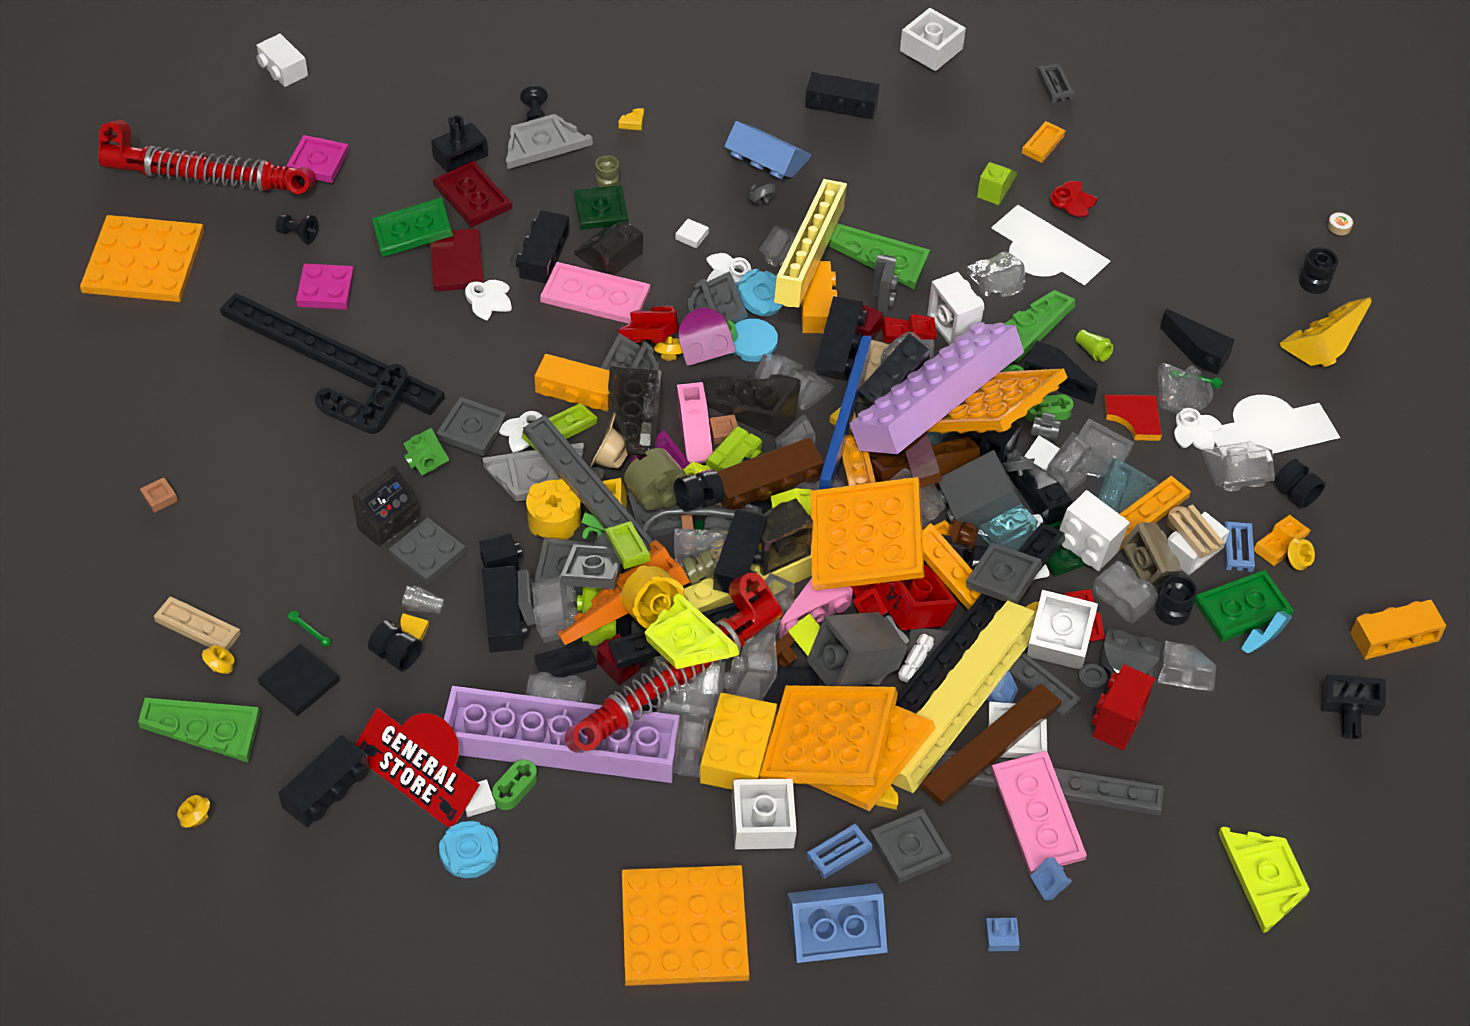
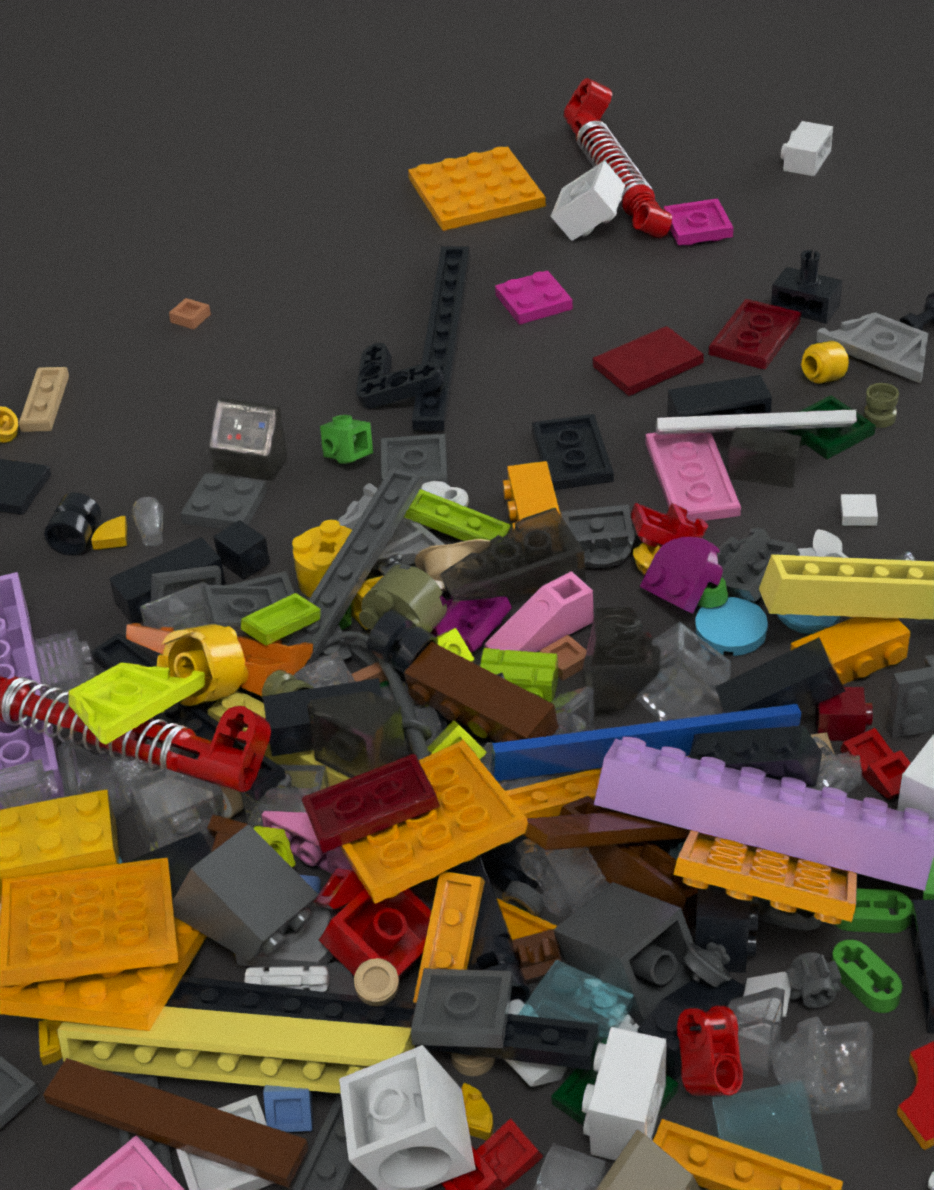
camera: 70 degrees right, 10 degrees down
(253, 200) = (588, 201): none -> white brick
(294, 617) = (65, 482): green hinge -> none
(306, 228) = (592, 249): black piece -> none
(412, 227) = (661, 311): green tile -> none
(491, 297) = (611, 402): white plate -> none
(522, 340) = (573, 451): none -> black tile
(542, 175) = (825, 362): none -> yellow head
(584, 237) = (759, 422): none -> white tile
(839, 553) = (369, 802): none -> dark red tile
(959, 608) = (376, 982): none -> tan tile
(1080, 482) = (708, 1055): none -> red piece

